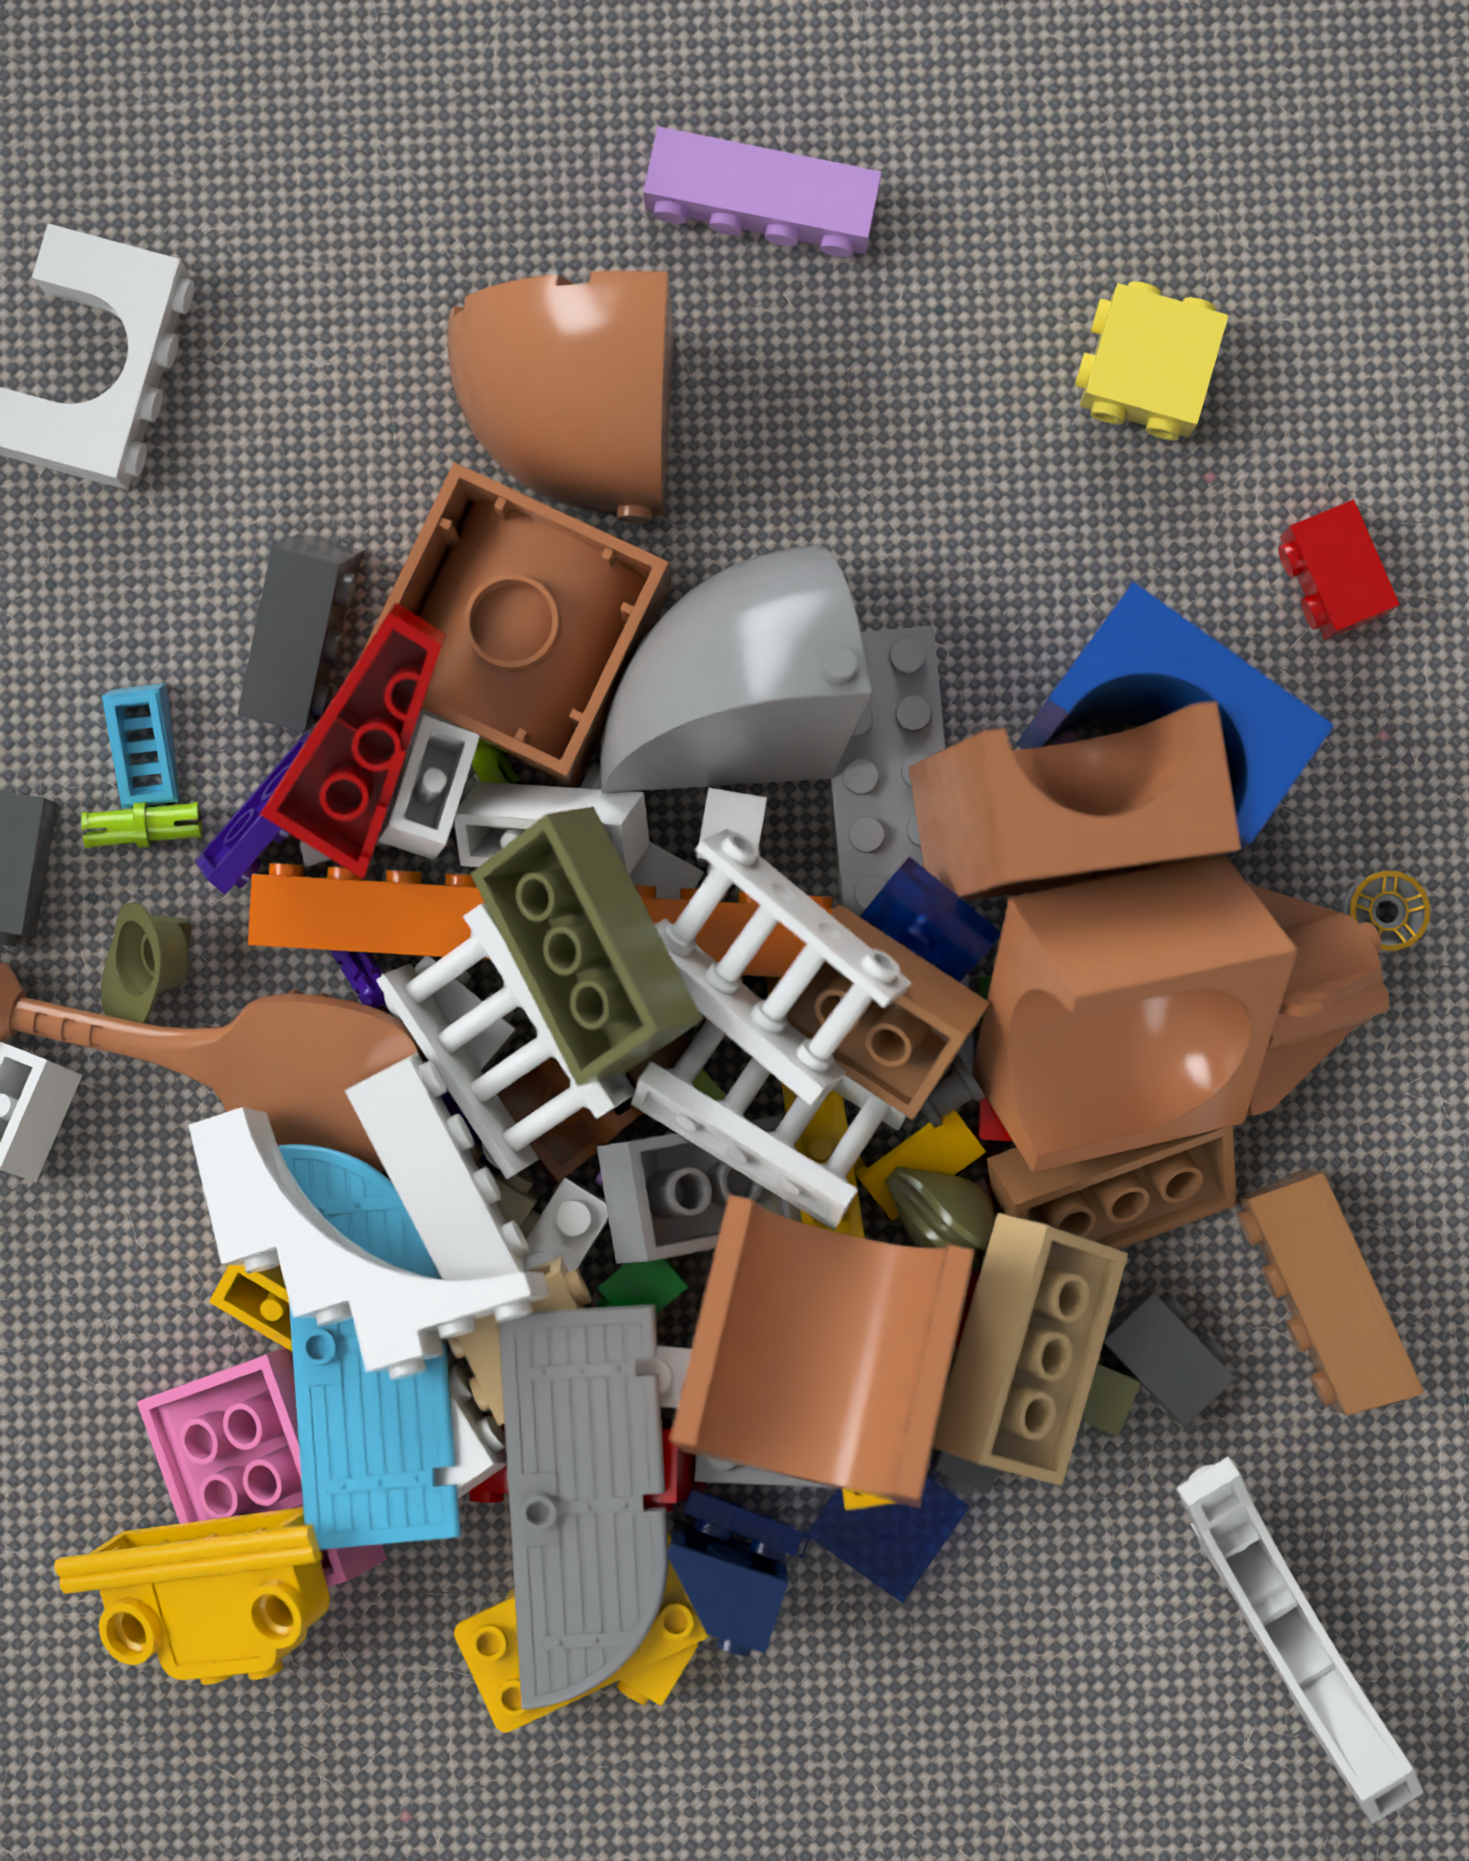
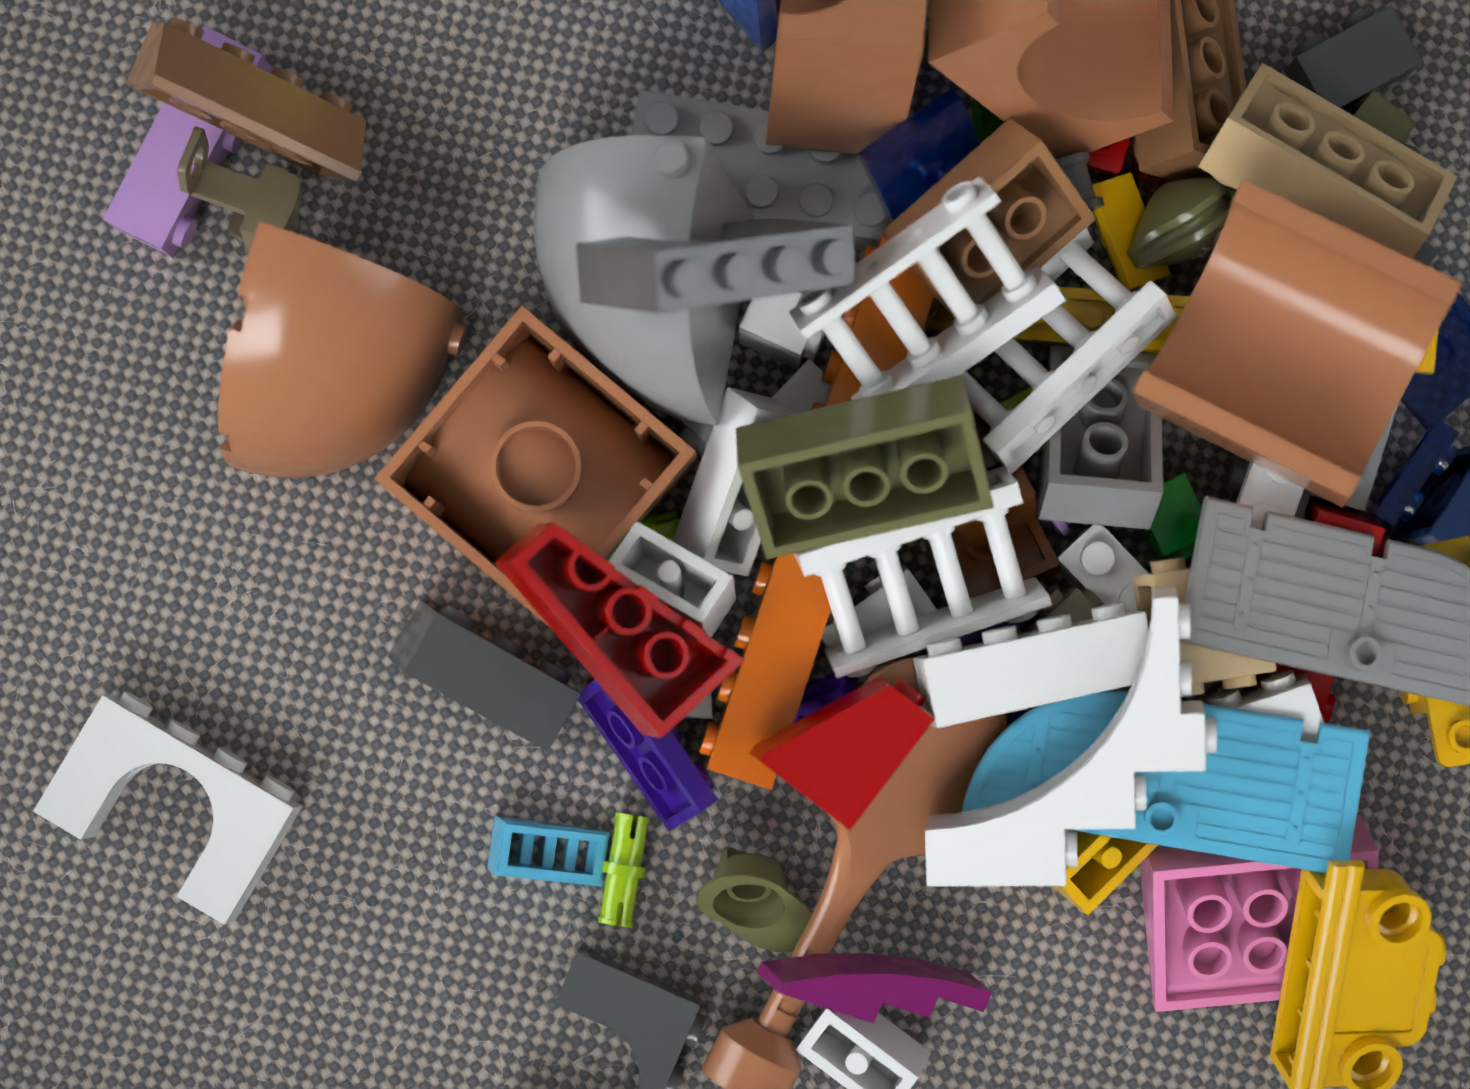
camera: 80 degrees left, 0 degrees up
(83, 1088) = (864, 981): none -> magenta slope
(304, 1006) = (848, 747): none -> red slope
(709, 282) = (267, 199): none -> dark tan piece
(766, 793) = (746, 264): none -> dark grey arch
(809, 237) = (248, 101): none -> medium nougat slope

